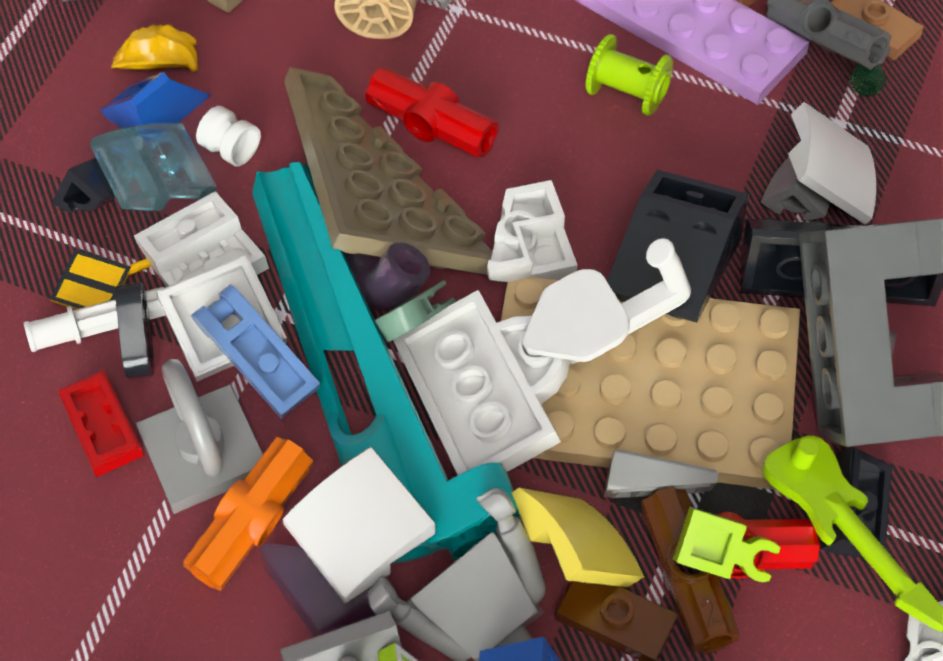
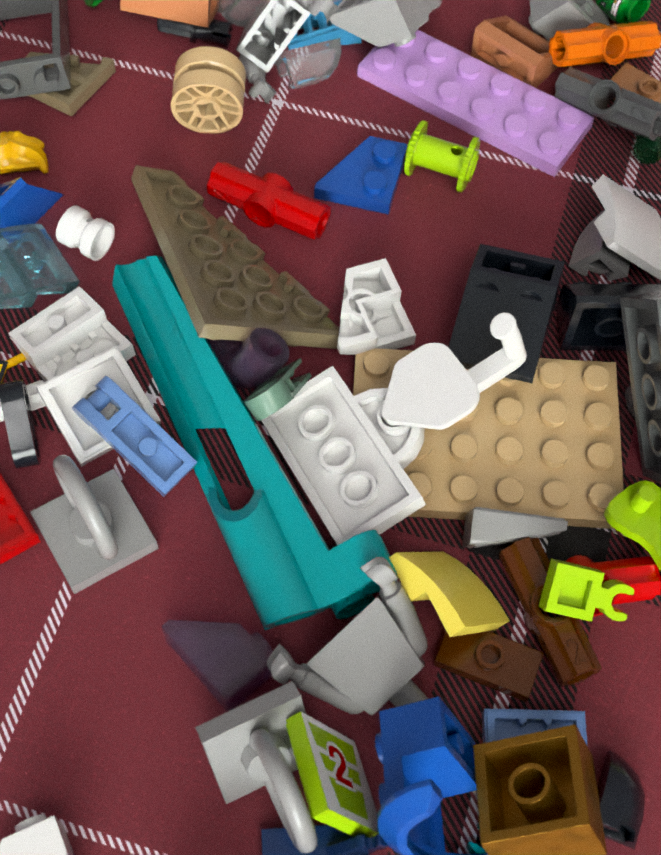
camera: 10 degrees left, 5 degrees up
(248, 513) = (145, 591): orange piece -> none
(358, 524) = (251, 597): white slope -> none
(543, 93) = (365, 176): none -> blue wing

